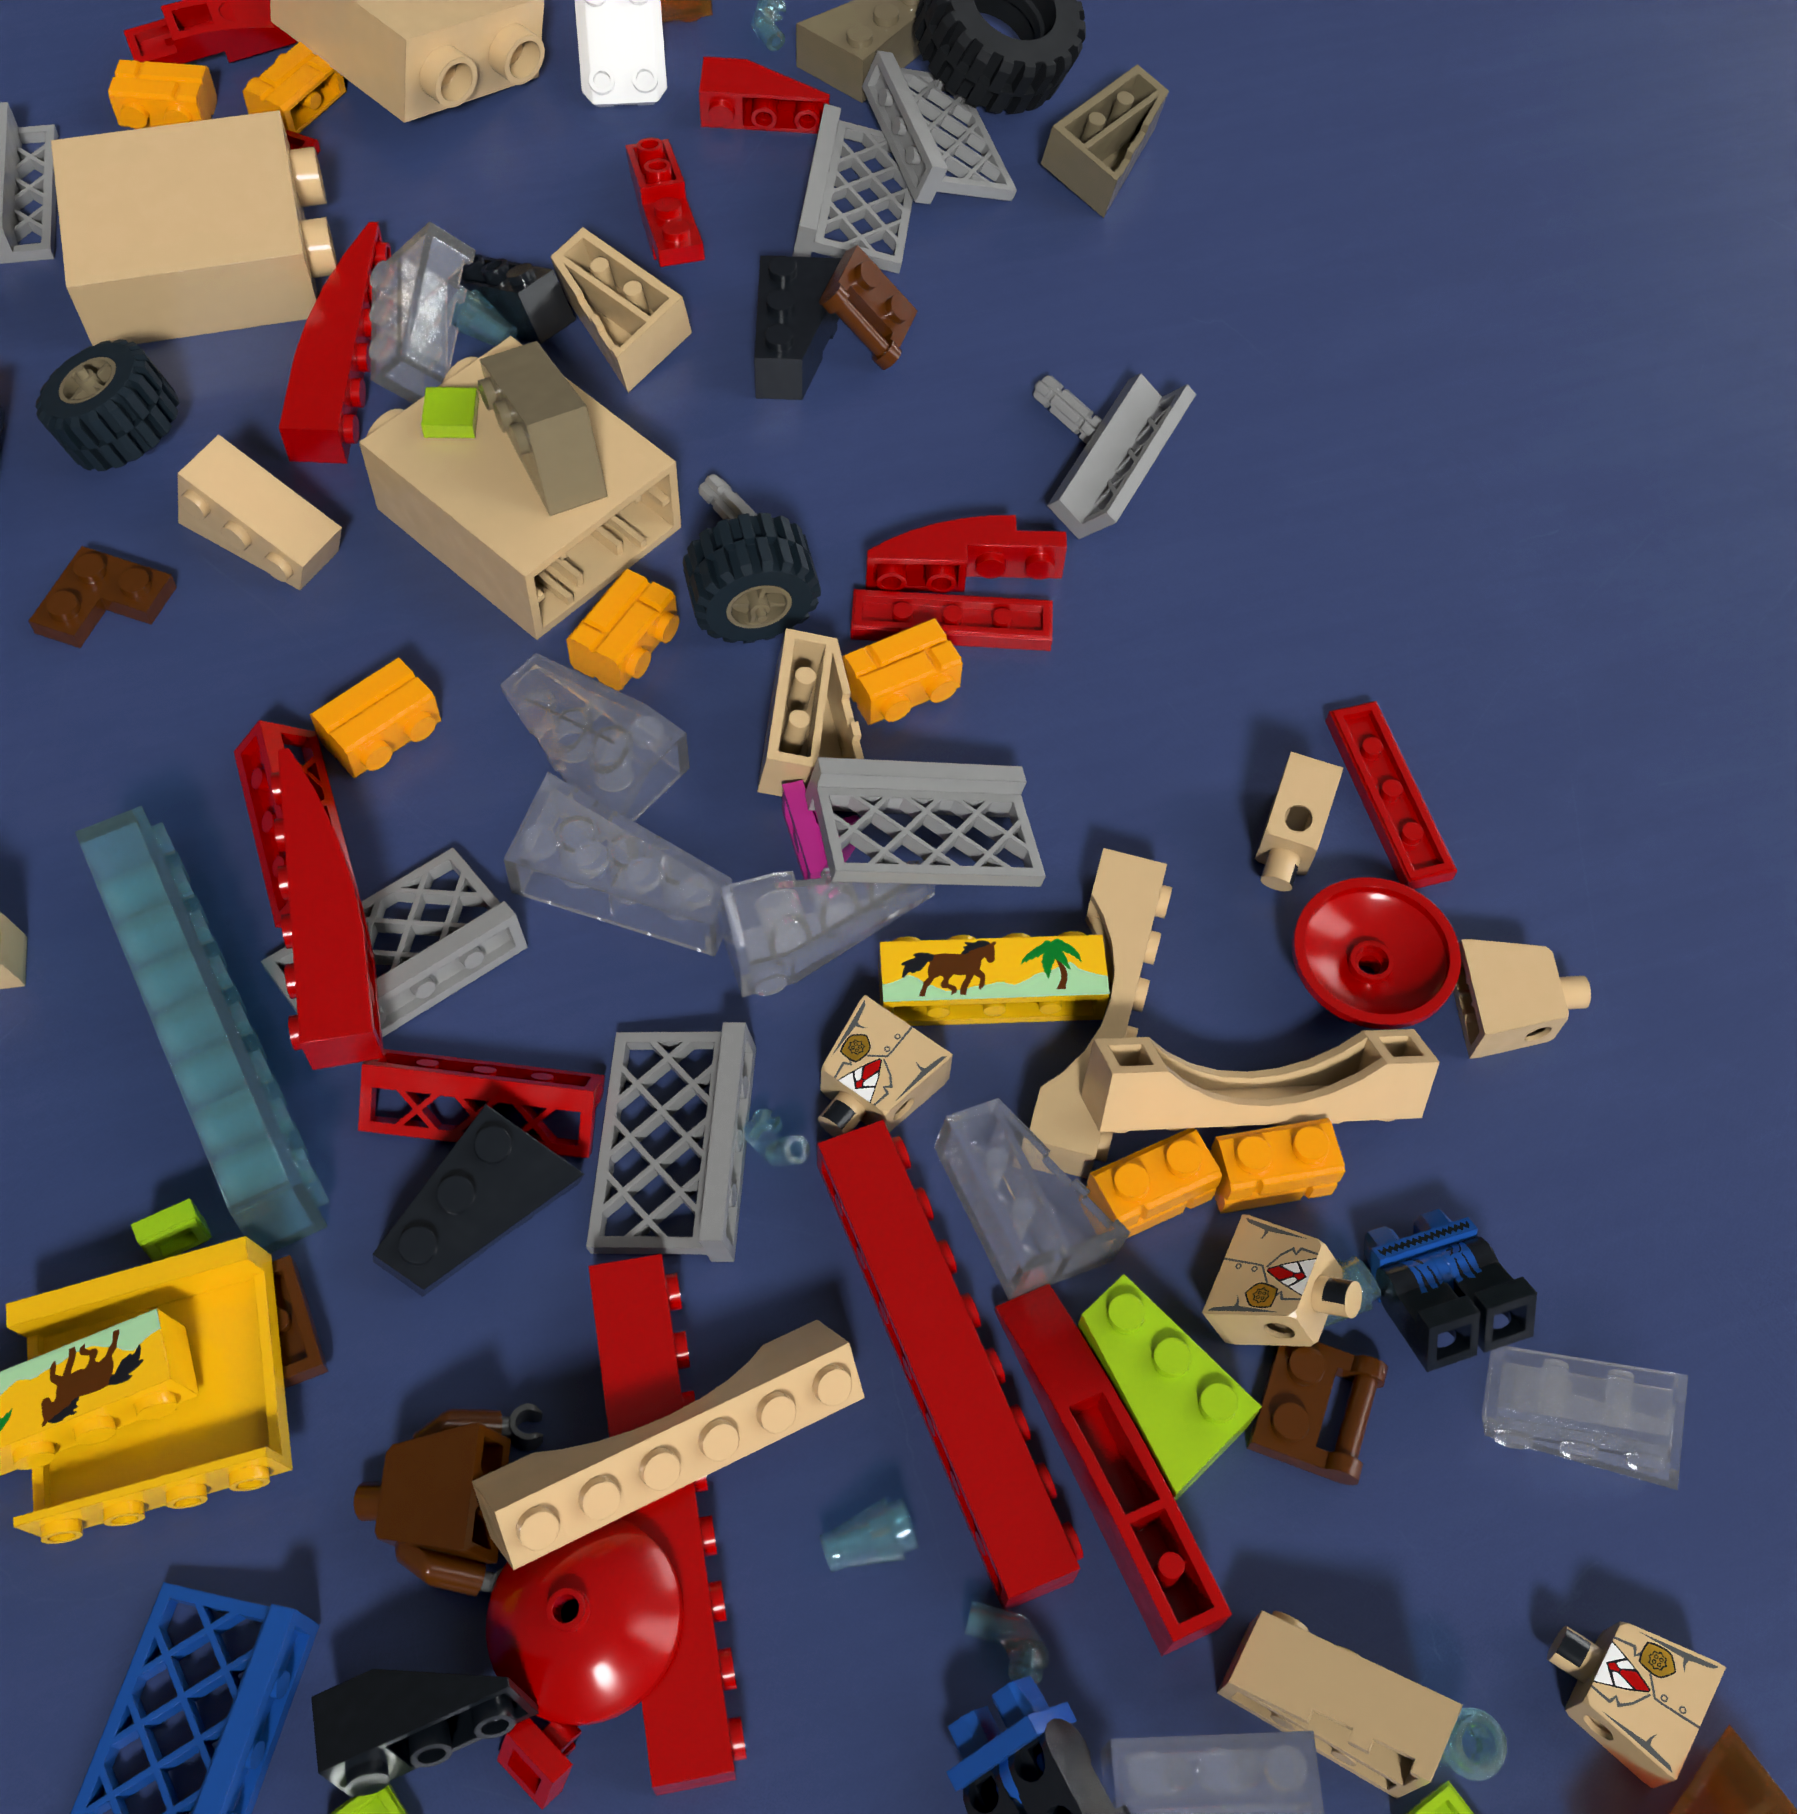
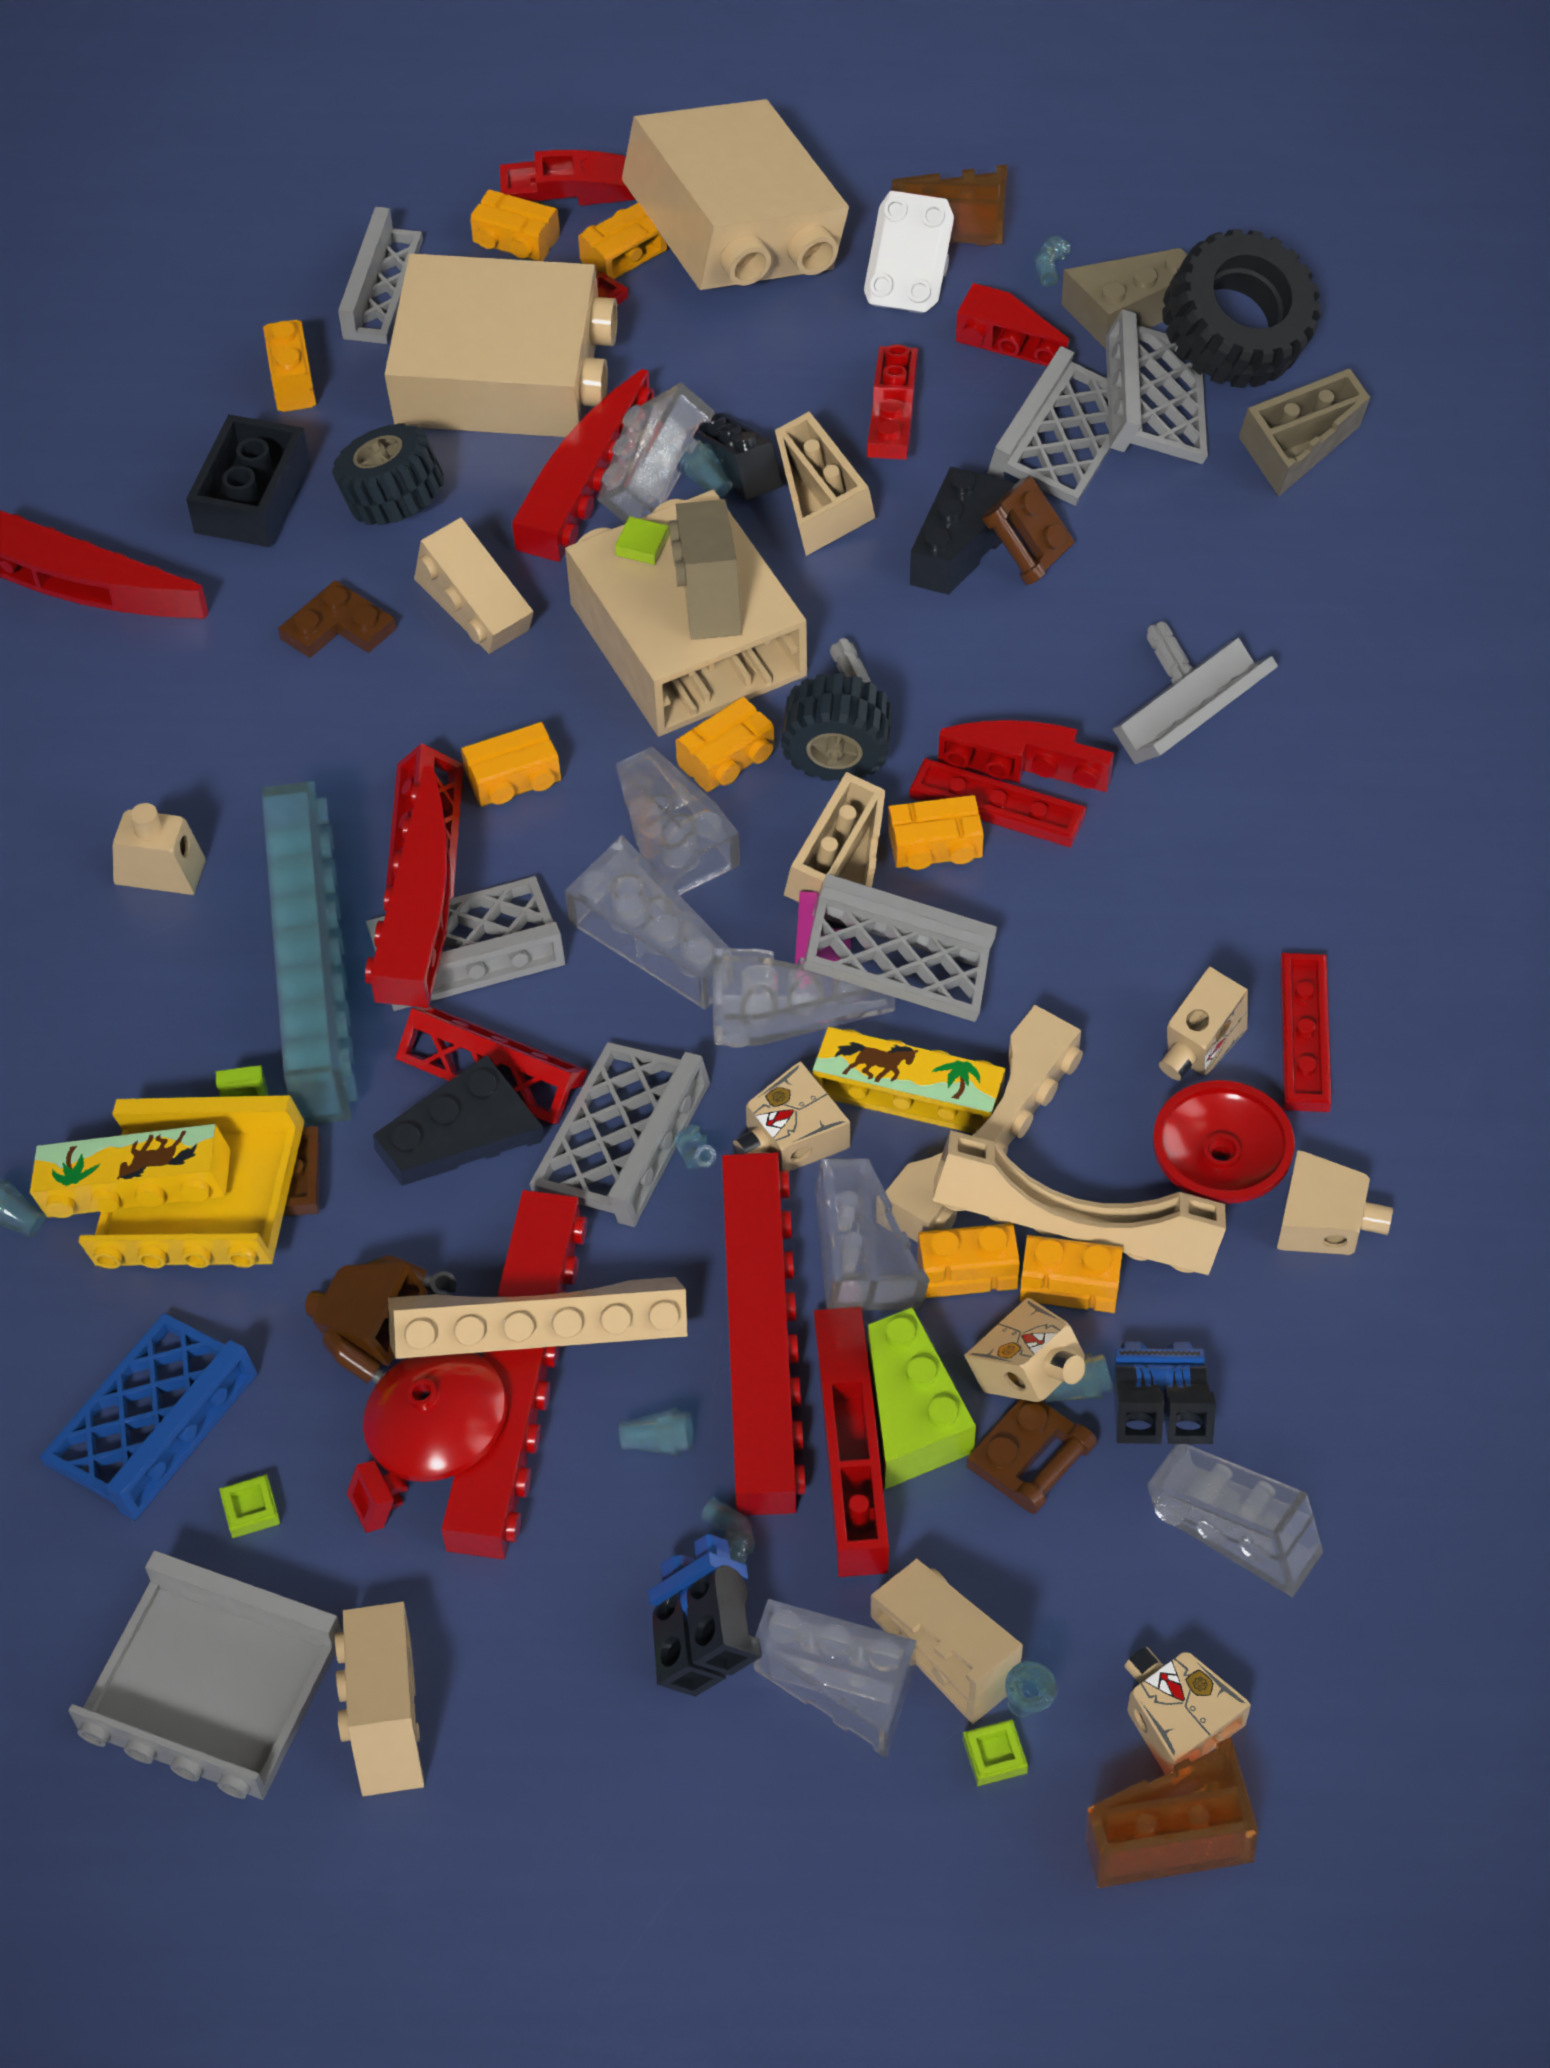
camera: 25 degrees right, 5 degrees down
(407, 1721) = (296, 1437): black slope -> none

